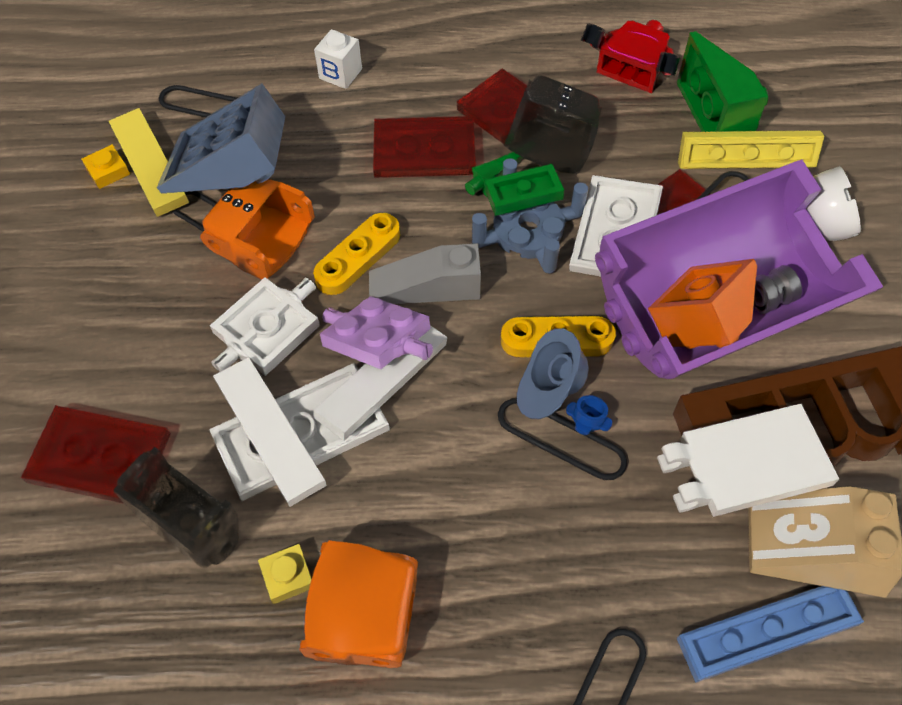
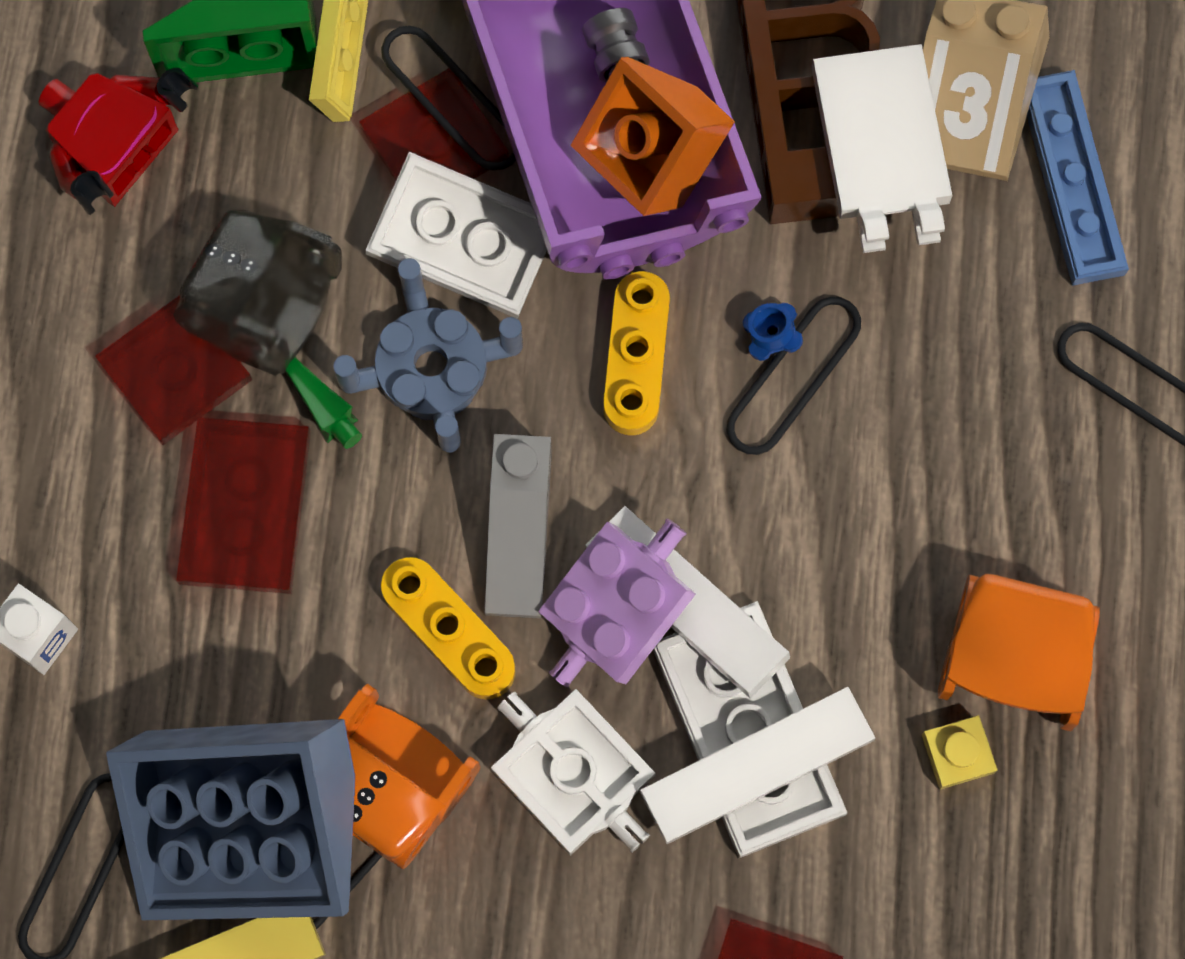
camera: 85 degrees left, 15 degrees up
(179, 509) = (888, 873): clear smoke piece -> none
(523, 189) = (391, 354): green plate -> none
(552, 374) = (716, 369): sand blue piece -> none

